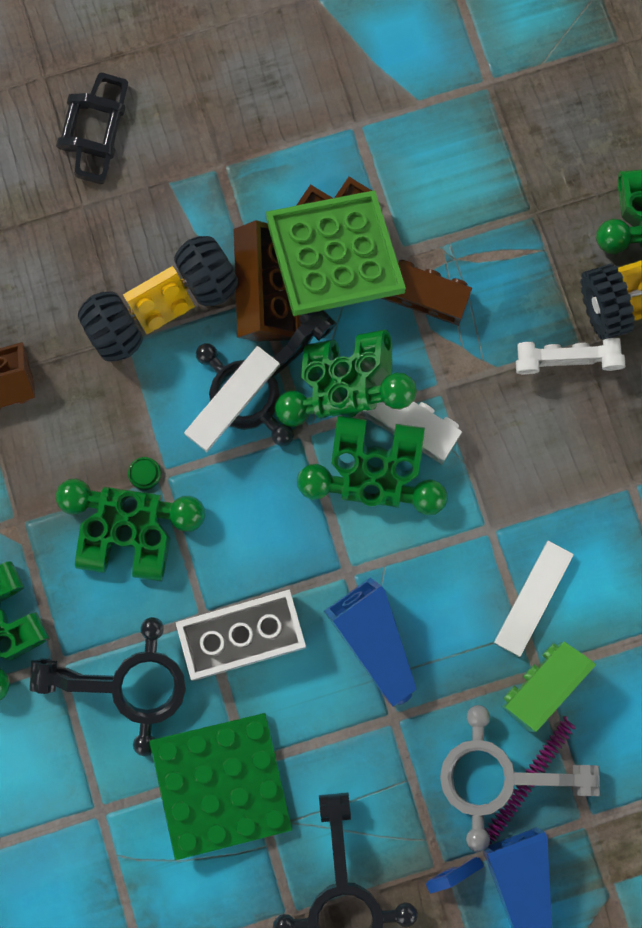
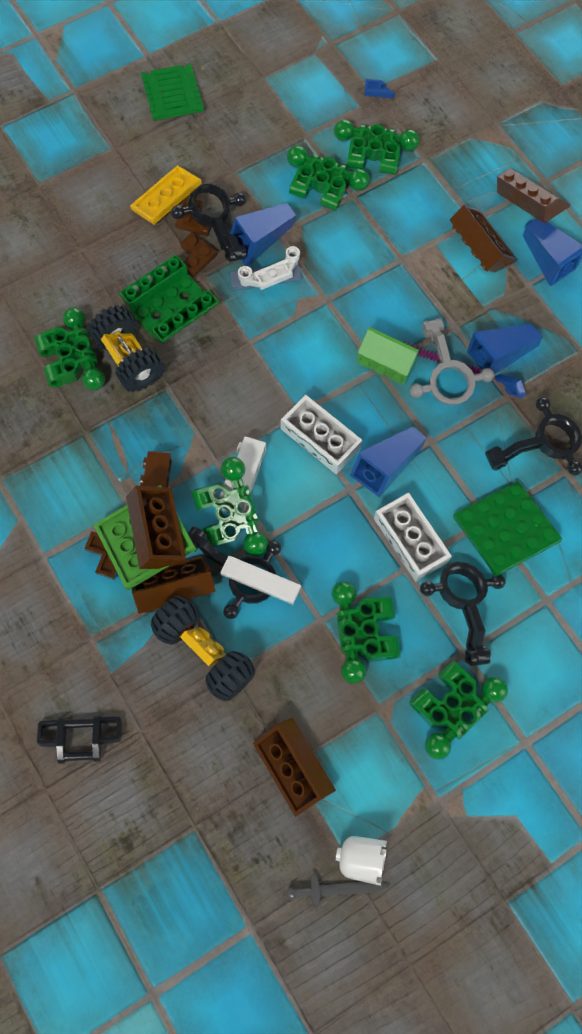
camera: 110 degrees left, 10 degrees down
(144, 473) = (323, 632): green piece -> none
(337, 264) = (155, 527): none -> reddish brown slope
(427, 496) = (286, 469): green connector -> none
(439, 546) = (321, 434): none -> white brick
(533, 598) = (335, 379): white tile -> none
(580, 354) = (184, 408): white plate -> none

